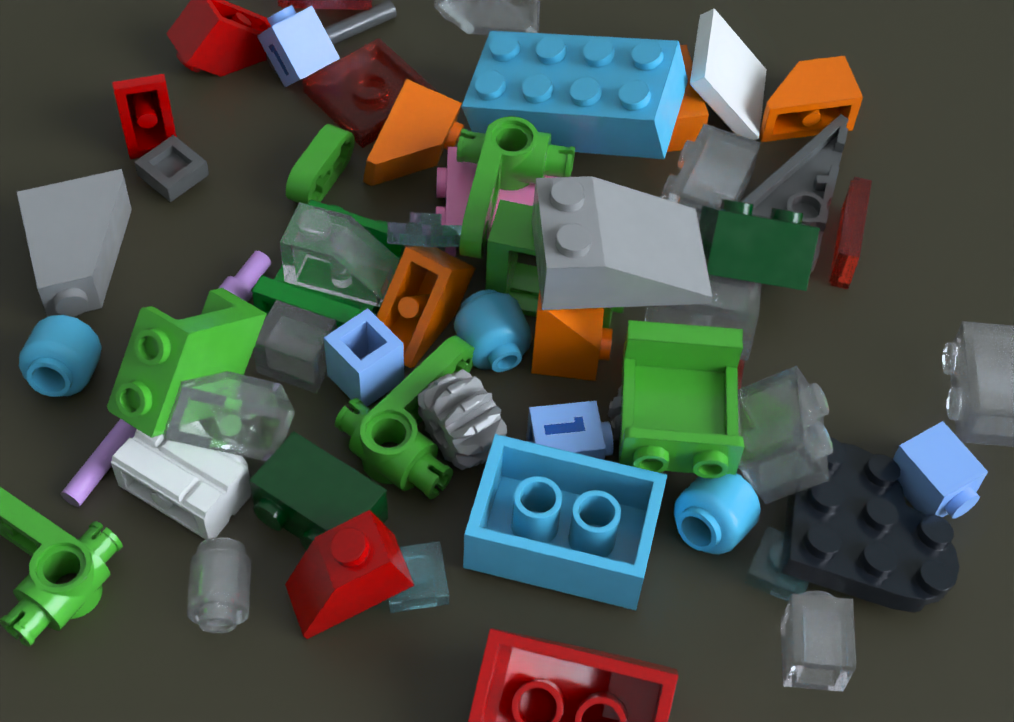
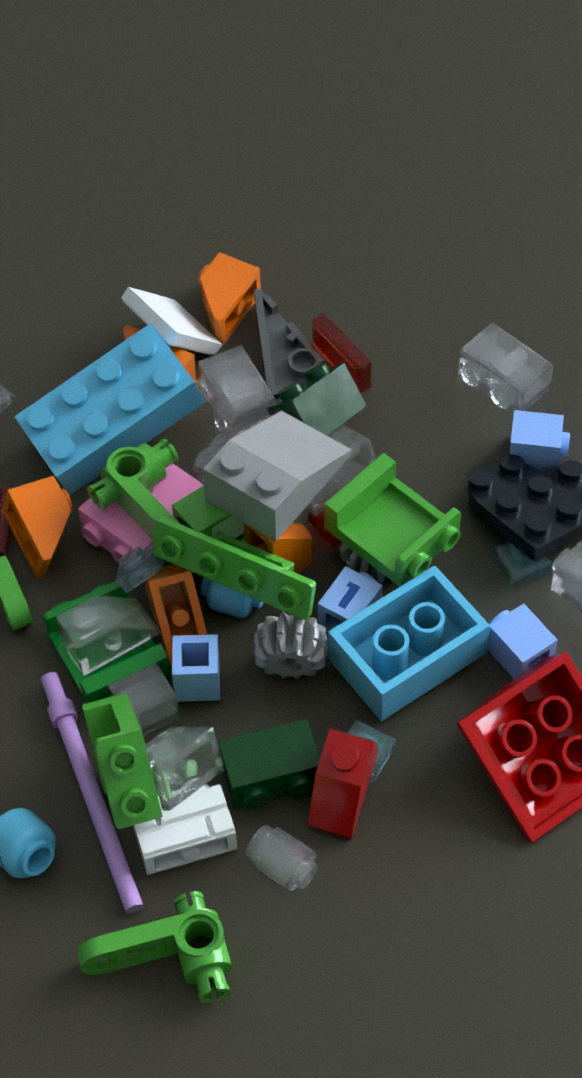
camera: 45 degrees left, 0 degrees up
(397, 420) = (254, 684): bright green piece -> none
(490, 302) = (236, 566): none -> bright green bracket
(675, 628) = (519, 640): none -> light blue brick
(716, 513) = (468, 564): medium azure head -> none
(783, 434) = (448, 485): clear brick -> none

